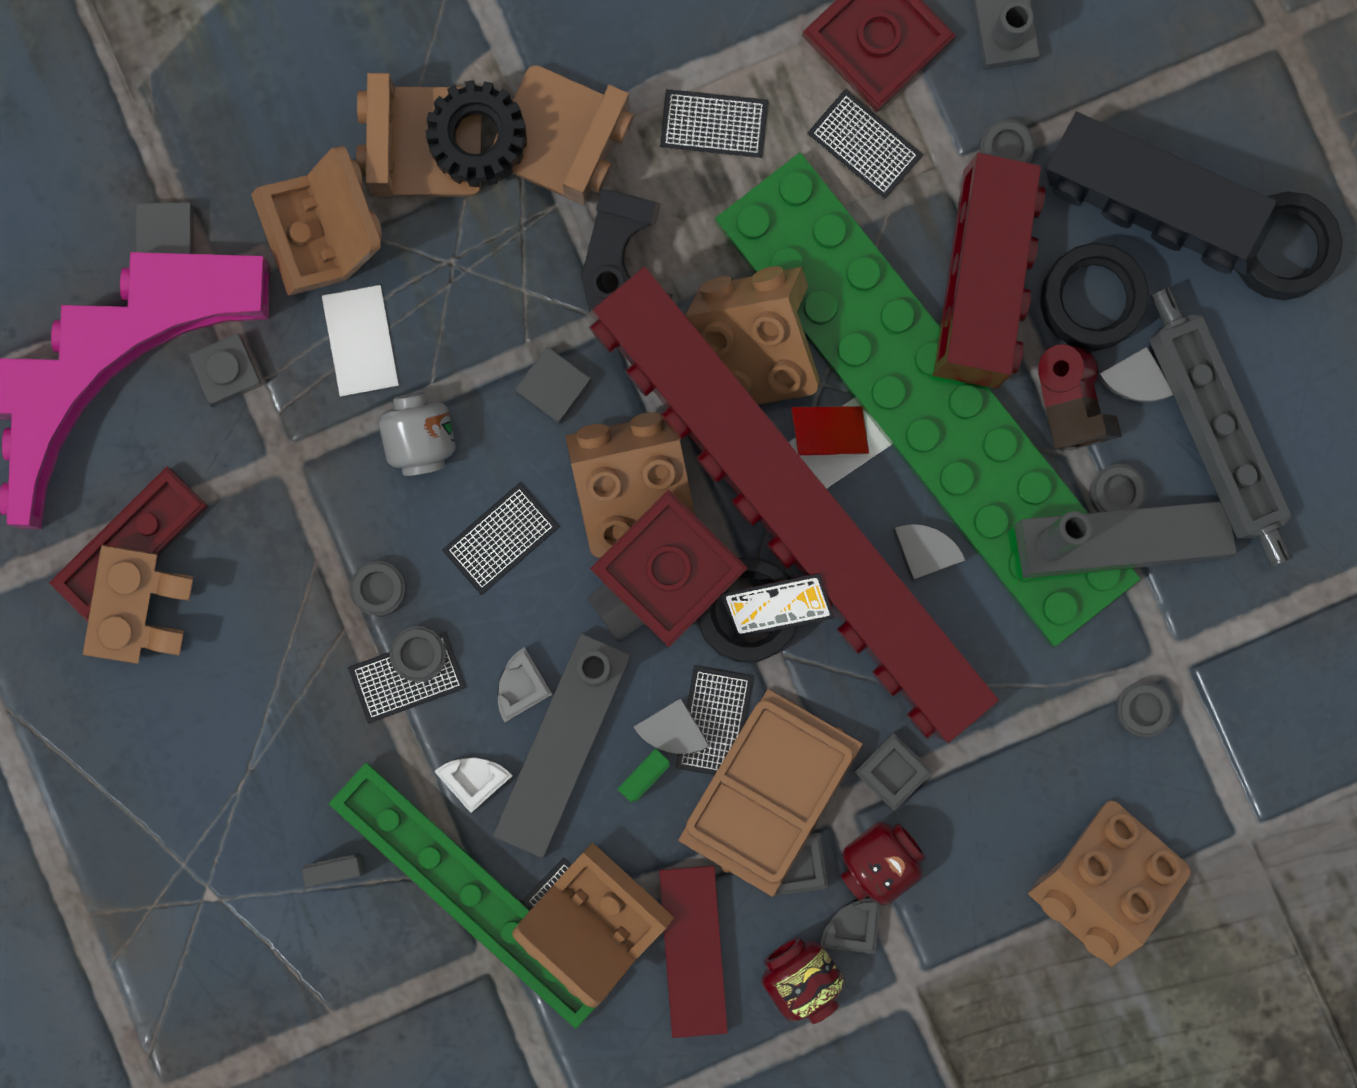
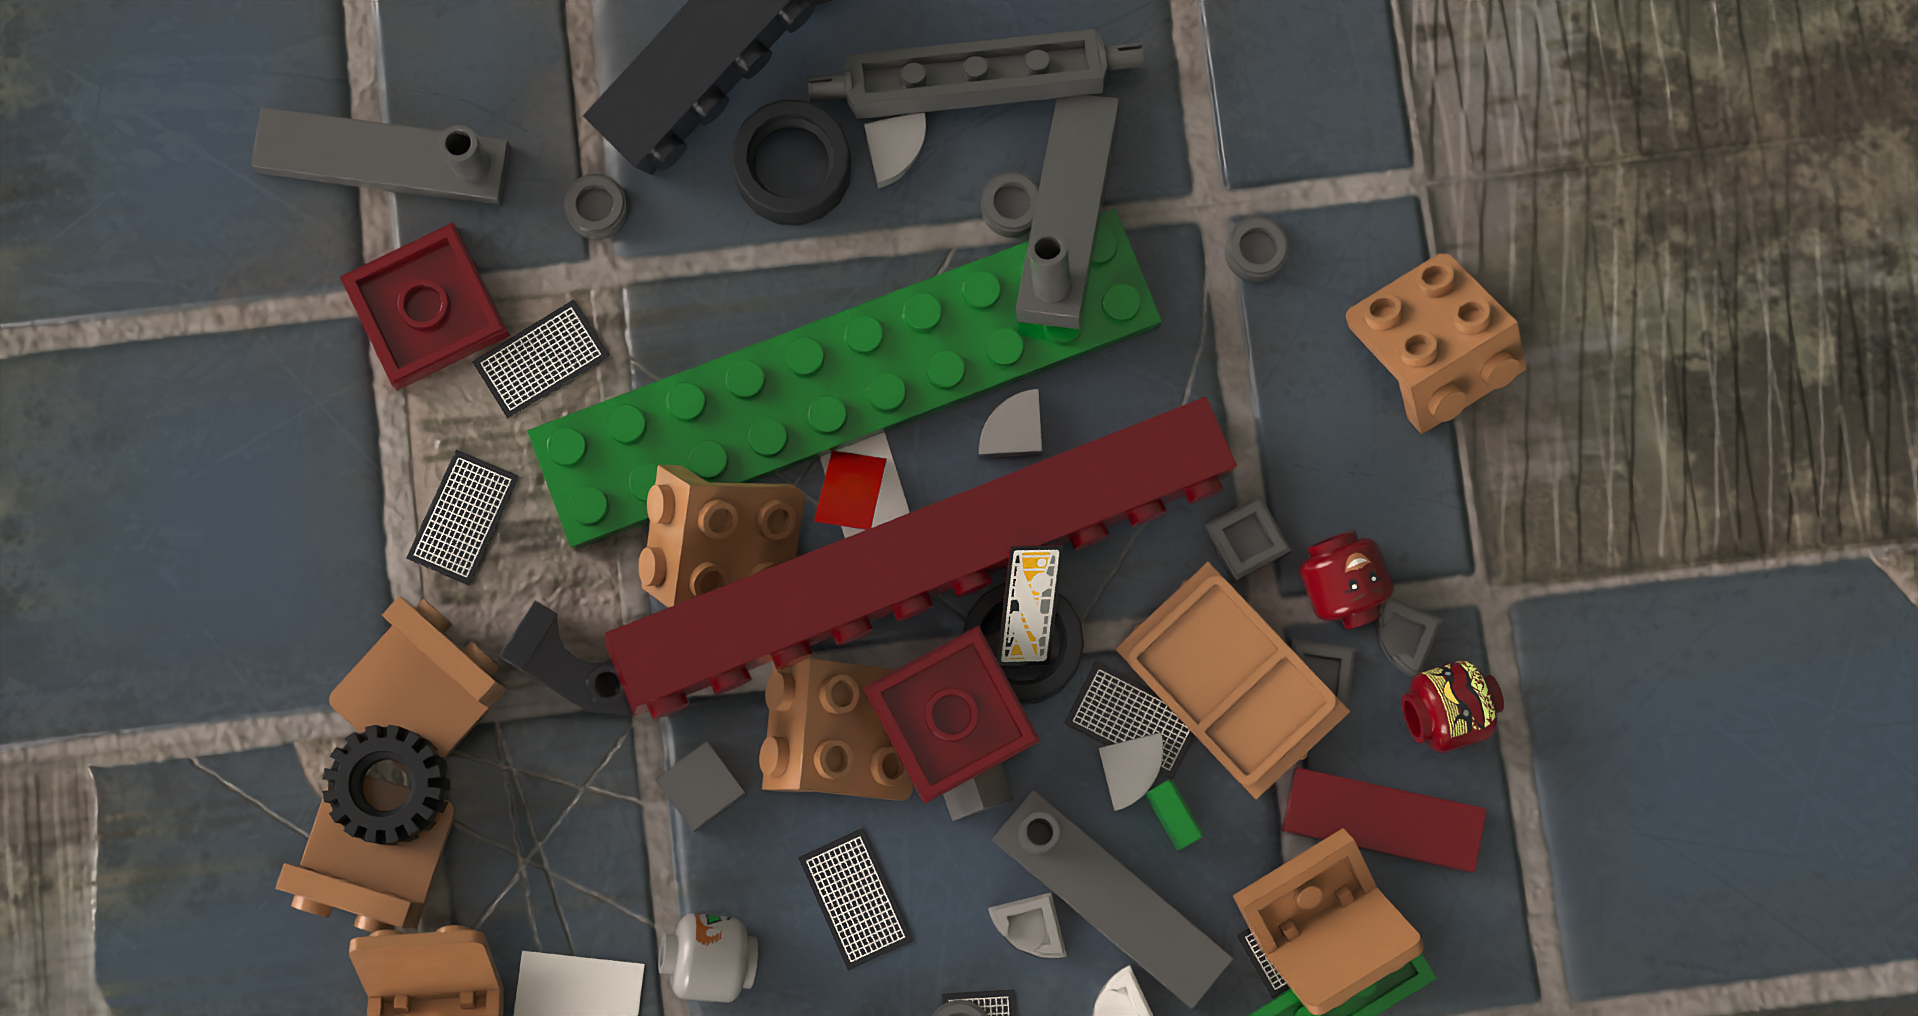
camera: 70 degrees left, 5 degrees down
(989, 271) = (728, 263): dark red brick -> none
(1071, 399) = (896, 220): leg -> none

